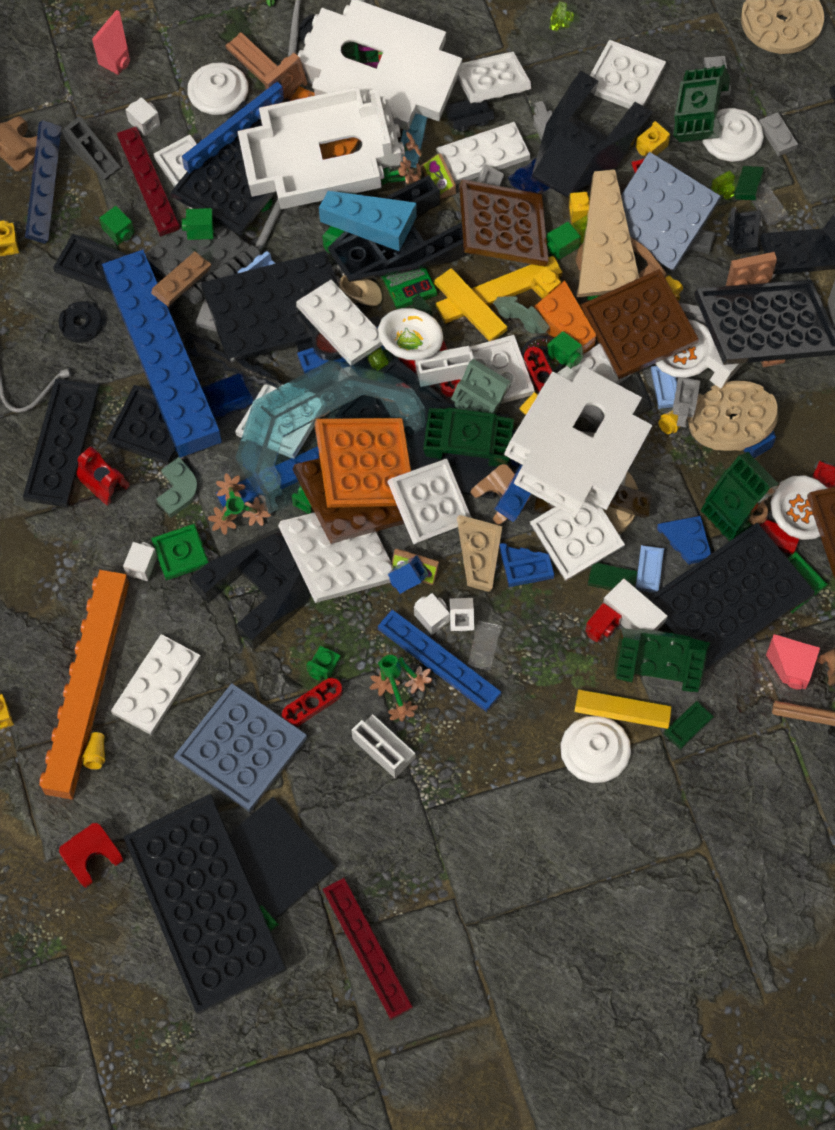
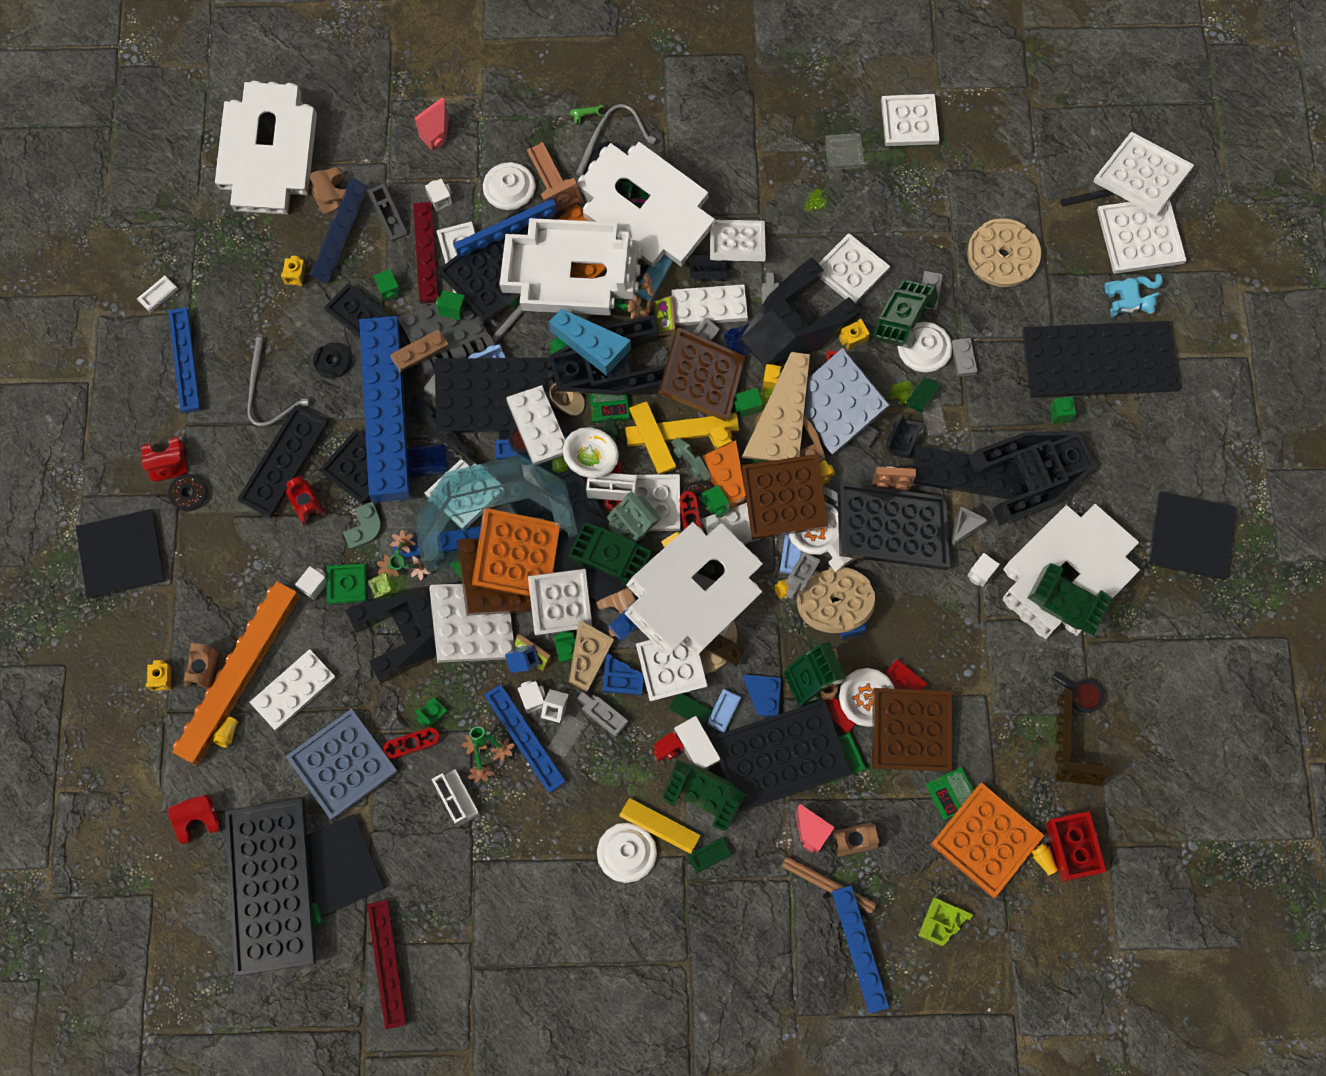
camera: 15 degrees right, 5 degrees up
(41, 684) = (201, 665): none -> medium nougat piece
(221, 541) = (381, 585): none -> clear neon green tile
(449, 550) = (565, 646): none -> green bracket
(517, 609) = (602, 714): none -> light grey hinge

